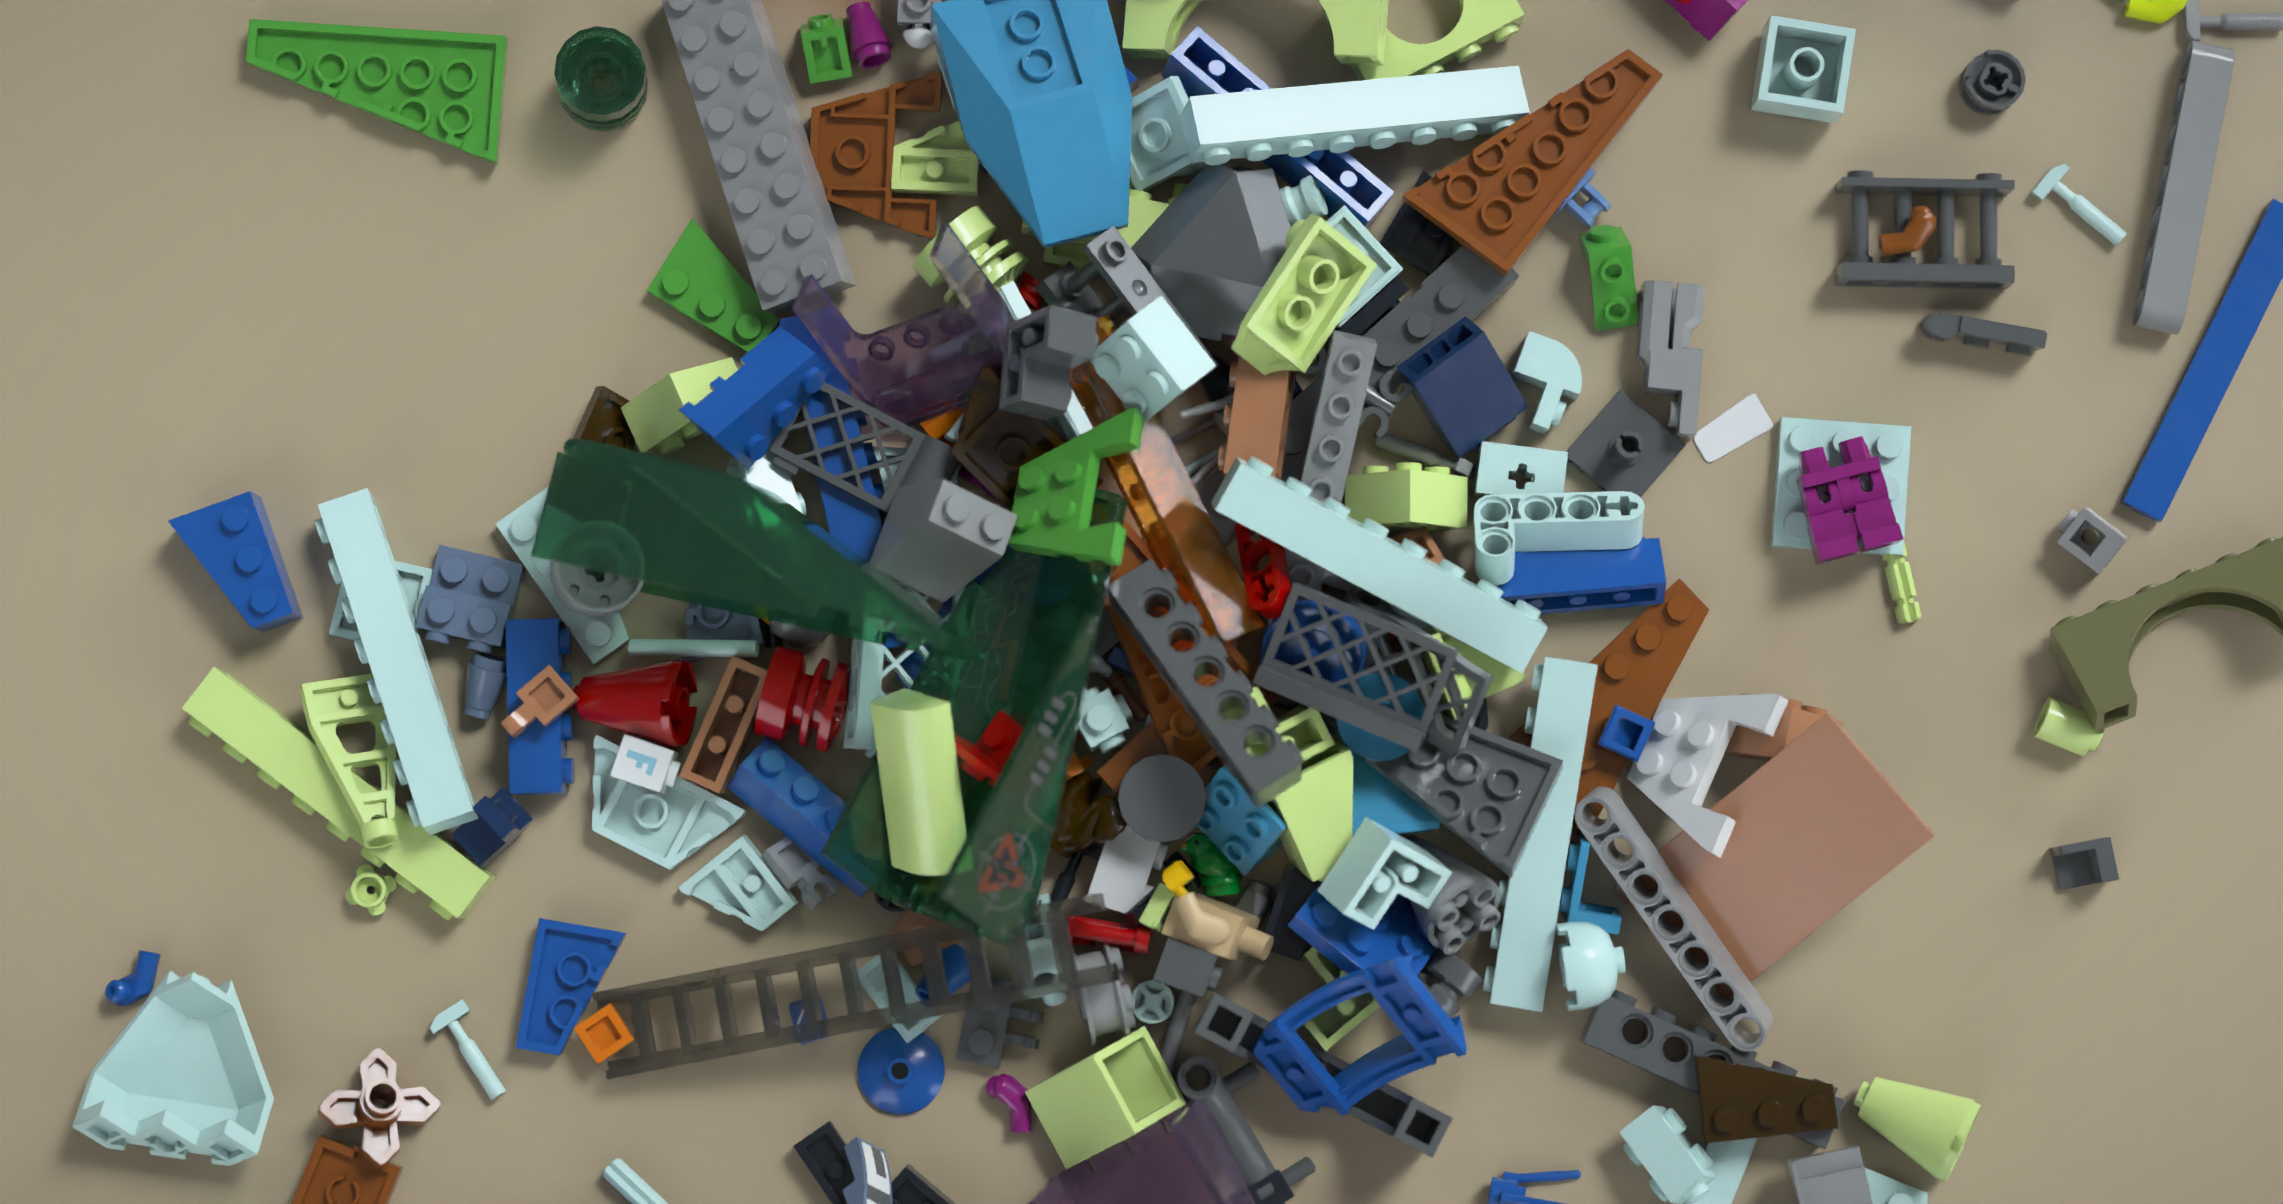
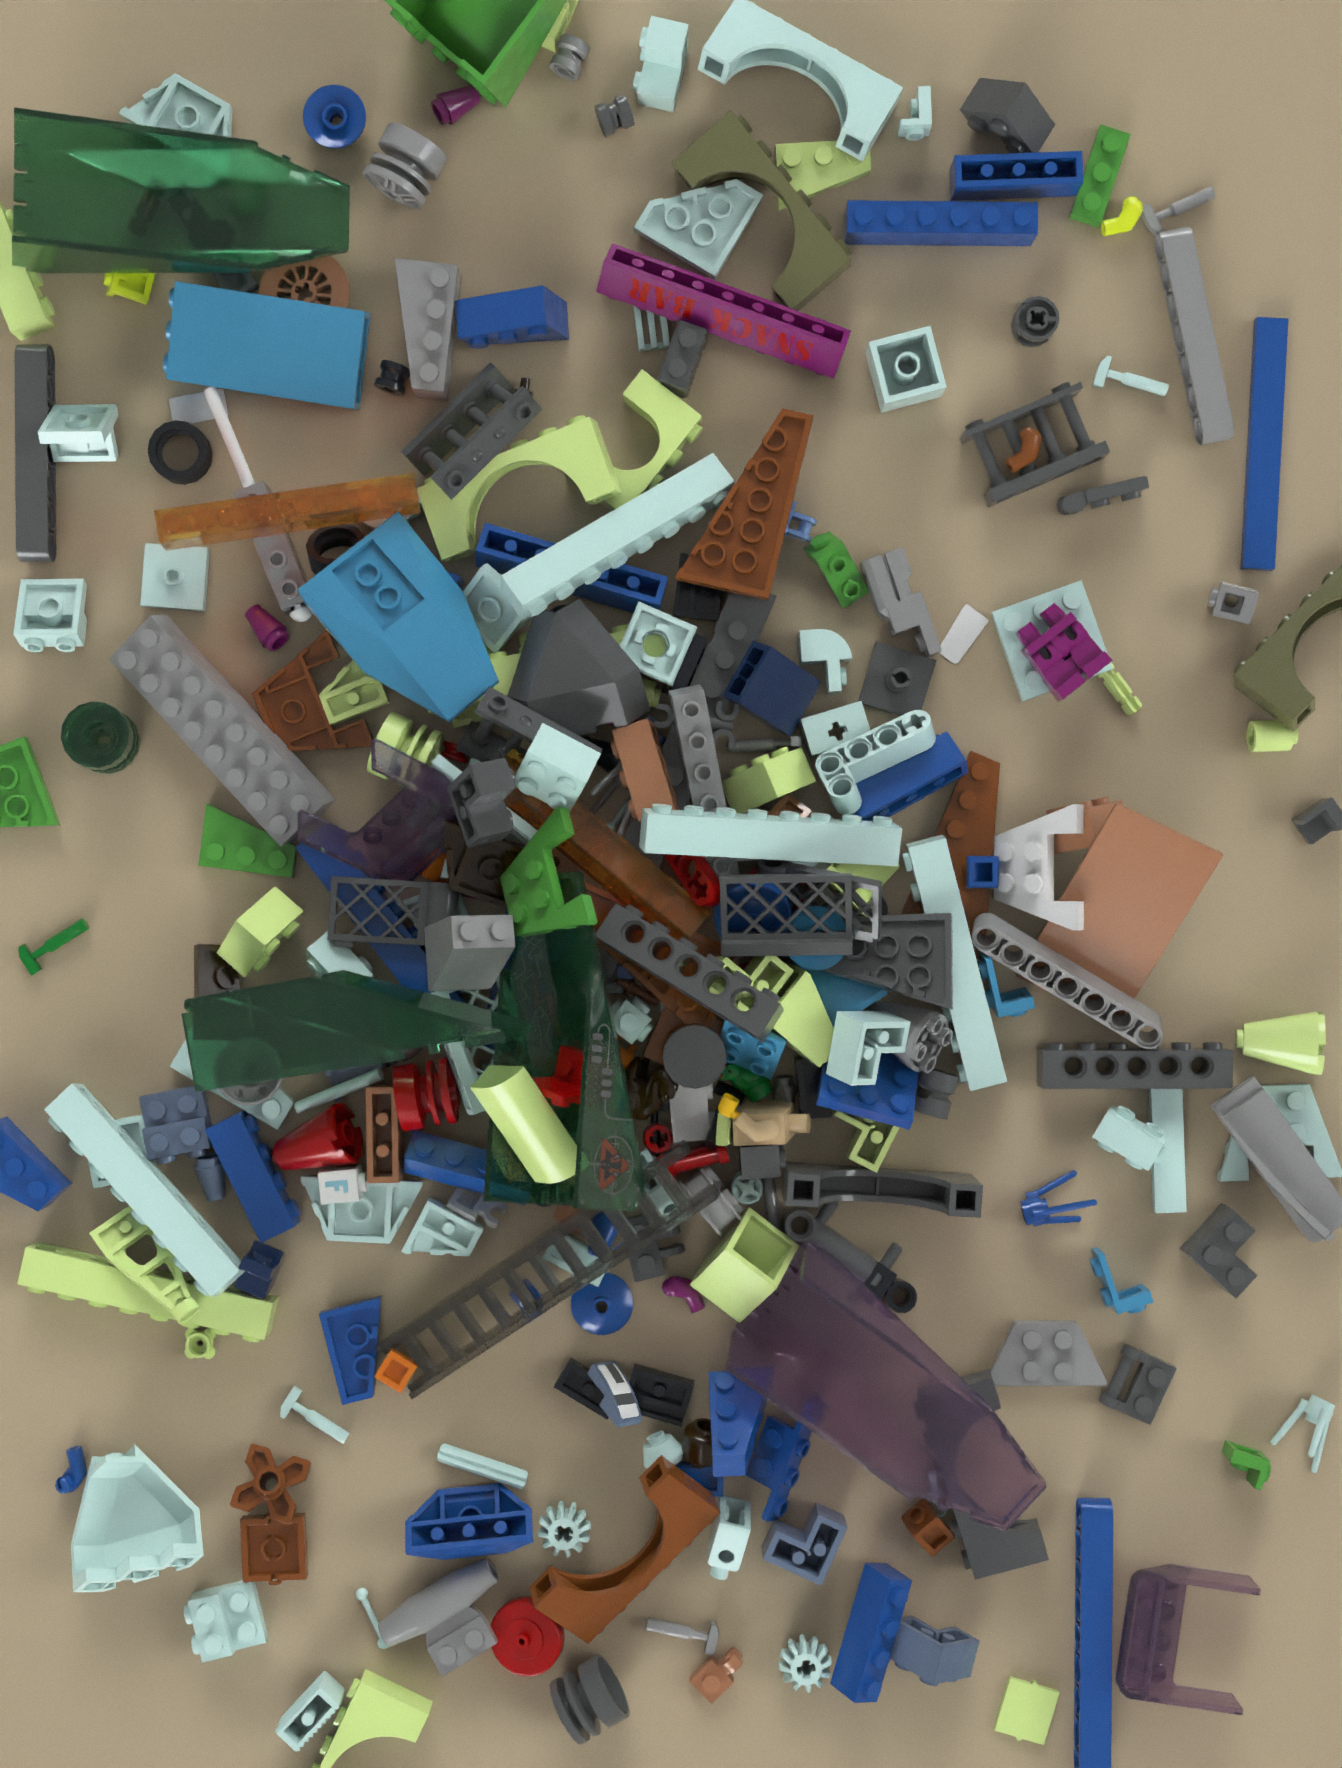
camera: 25 degrees left, 5 degrees up
(416, 307) = (50, 945): none -> green piece
(543, 698) = (253, 1173): nougat plate -> none
(760, 397) = (304, 909): blue wedge -> none
(825, 48) = (243, 649): bright green bracket -> none
(1077, 878) = (661, 1129): none -> red bush
(1302, 298) = (639, 679): yellowish green slope -> none
(1303, 200) = (610, 611): light aqua wheel -> none
(1405, 999) = (936, 1142): blue wedge -> none
(1588, 964) = (1024, 1037): light aqua cylinder -> none
(1758, 1103) = (1177, 1078): dark brown wing -> none

